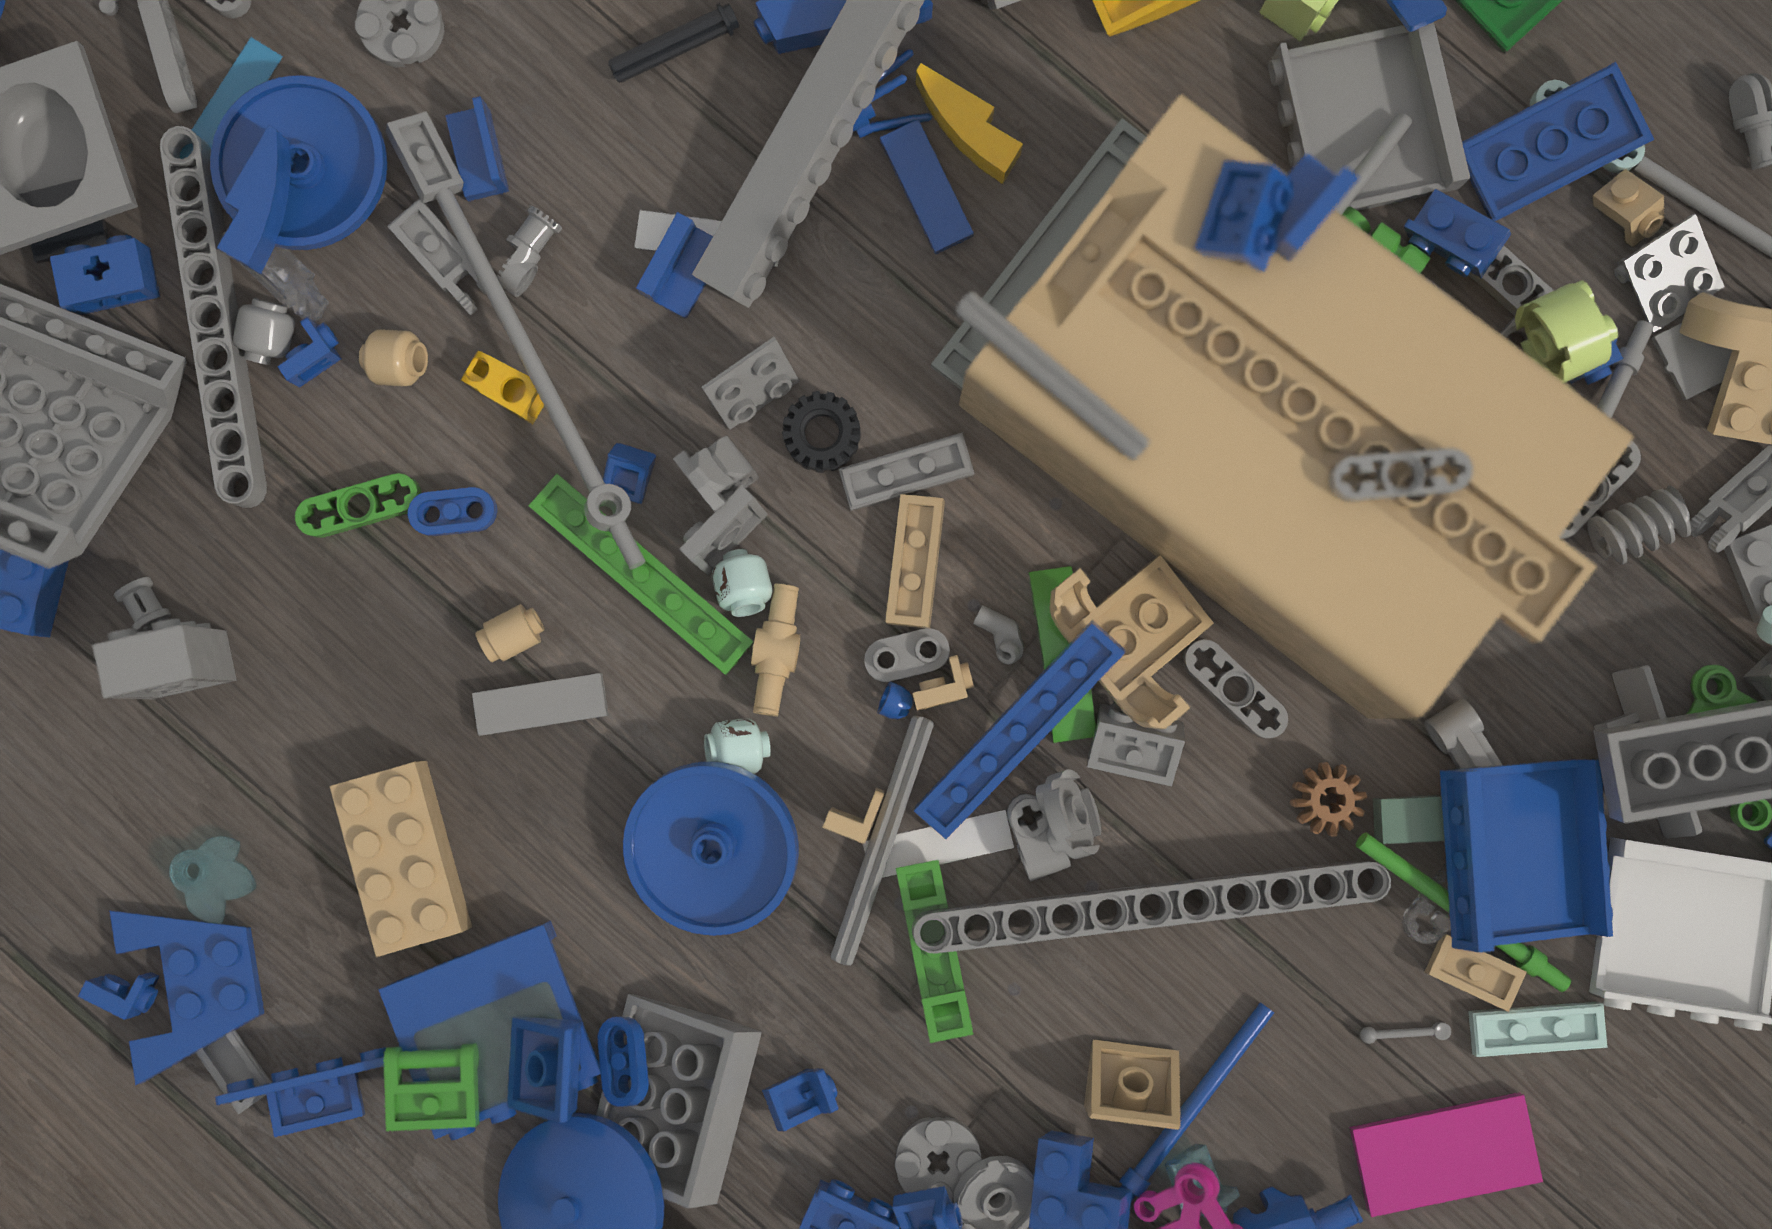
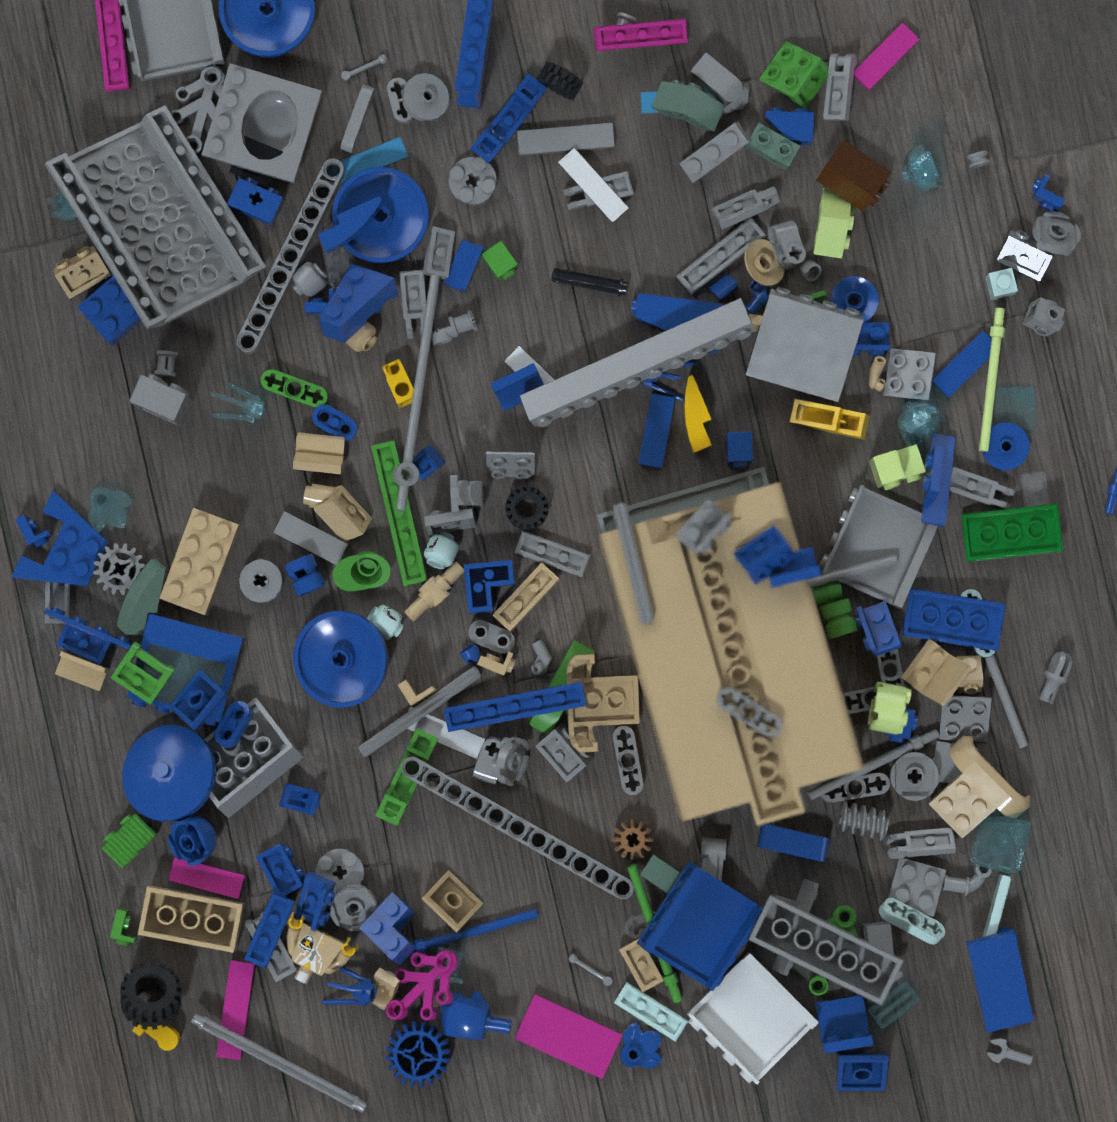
camera: 35 degrees right, 0 degrees up
(270, 947) = (112, 558): none -> light grey gear
(316, 576) = (252, 408): none -> clear light blue plant
(343, 1144) = (81, 671): none -> tan panel
(349, 309) = (354, 301): none -> blue wedge
(352, 976) = (141, 599): none -> sand green slope
(460, 571) = (319, 453): none -> tan panel
(491, 829) = (264, 569): none -> light grey piece
(522, 105) = (500, 261): none -> bright green brick
(561, 634) = (343, 514): none -> tan panel
(582, 772) = (308, 583): none -> blue wheel
(648, 699) = (361, 571): none -> bright green piece
(831, 579) = (480, 580): none -> blue brick
(1066, 120) = (739, 449): none -> blue brick
(1122, 243) = (702, 527): none -> light grey bracket
(1562, 1086) = (643, 1045): none -> blue plate
(1577, 628) = (793, 842): none -> blue beam
(1591, 236) = (936, 673): none -> tan bracket
(1689, 413) = (924, 786): none -> light grey plate

